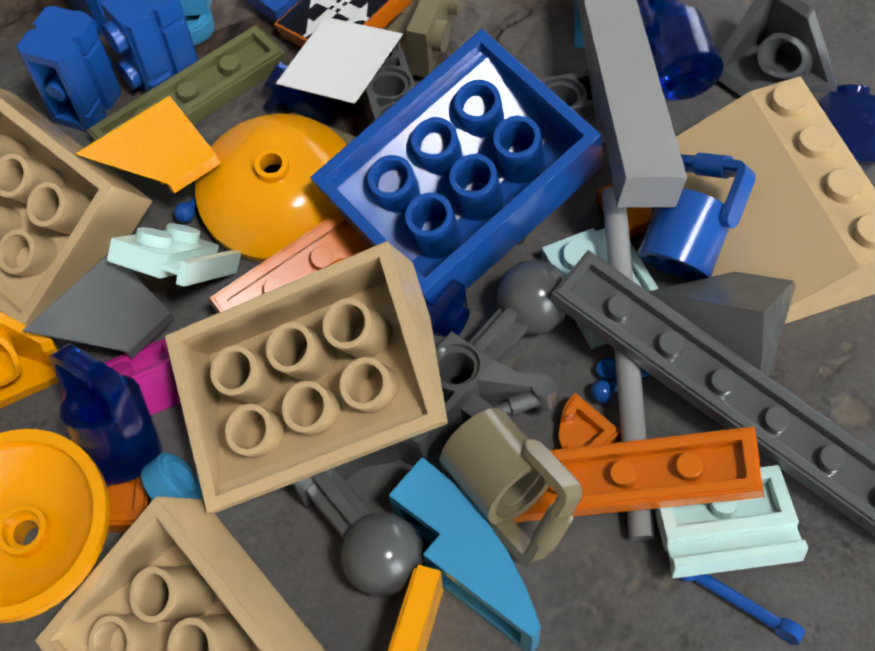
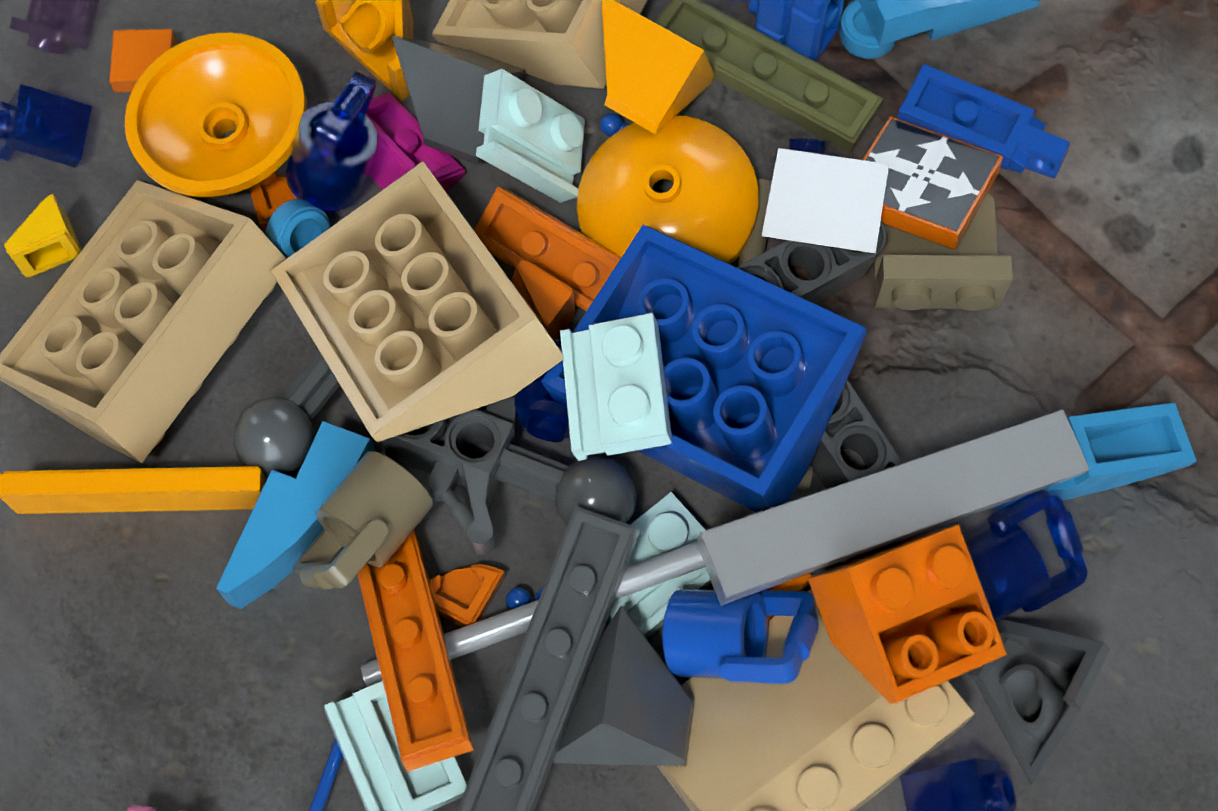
camera: 70 degrees right, 10 degrees up
(460, 224) = (615, 387): none -> light aqua plate
(717, 87) = (909, 614): none -> orange slope

